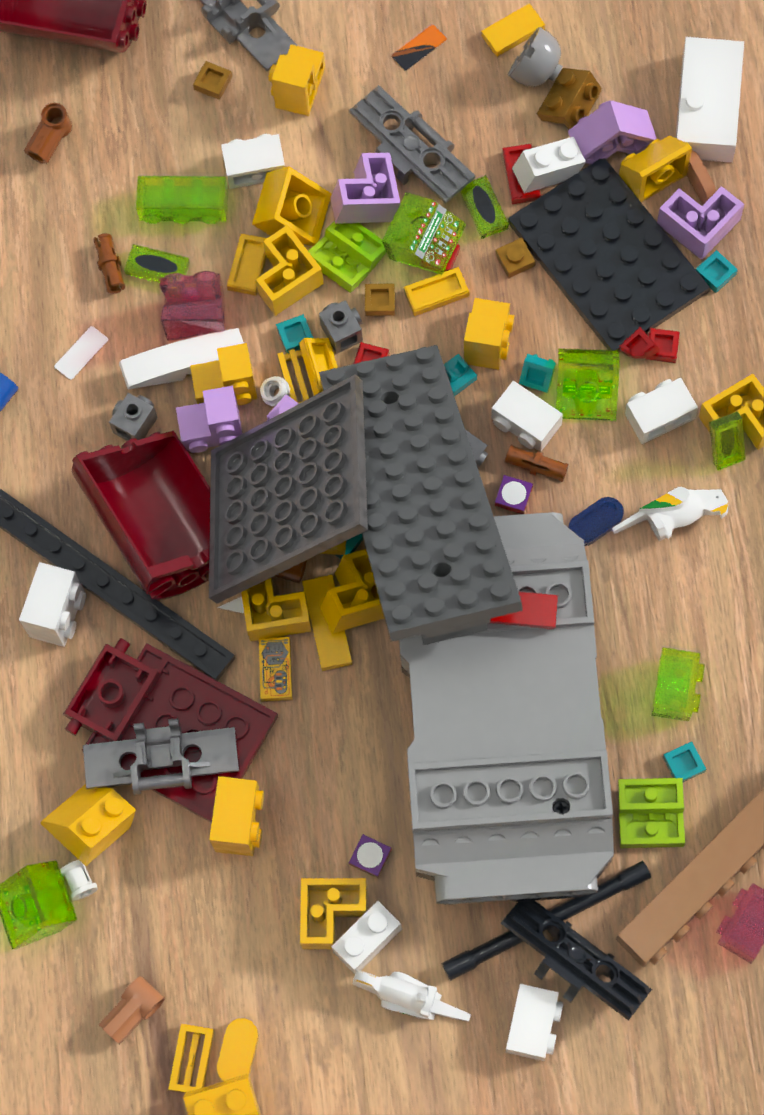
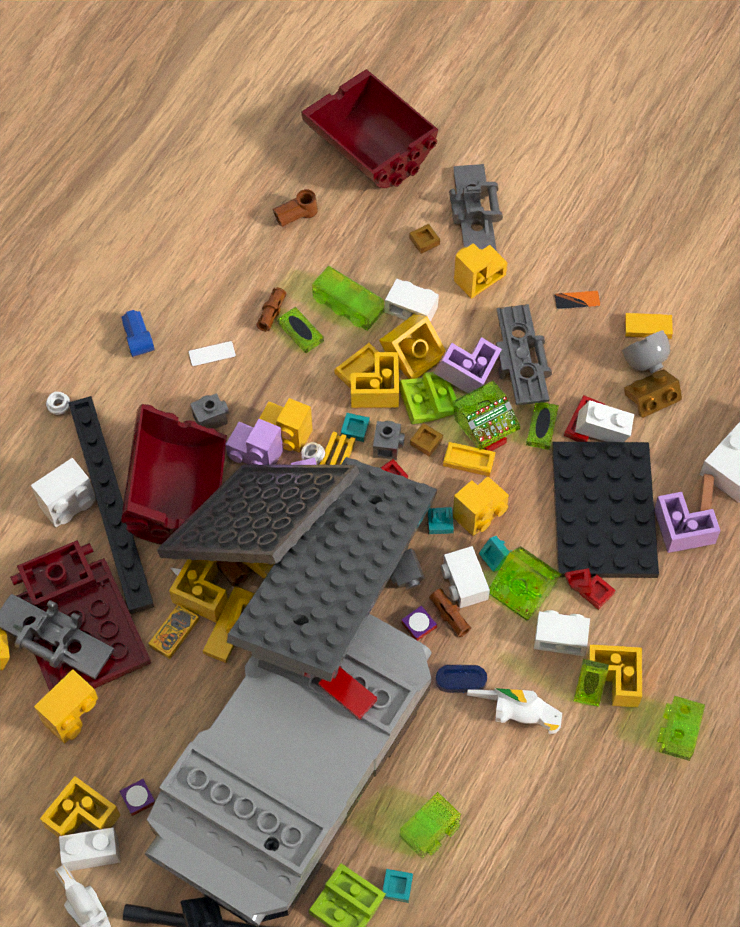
camera: 30 degrees right, 10 degrees down
(173, 360) = (259, 392): white slope -> none
(192, 304) = (299, 364): clear pink piece -> none
(317, 358) = (357, 448): yellow tile -> none
(515, 257) = (538, 470): pearl gold plate -> none
(611, 130) = (667, 427): lavender brick -> none
(656, 166) = (678, 471): yellow slope -> none
(716, 271) = (672, 567): teal tile -> none

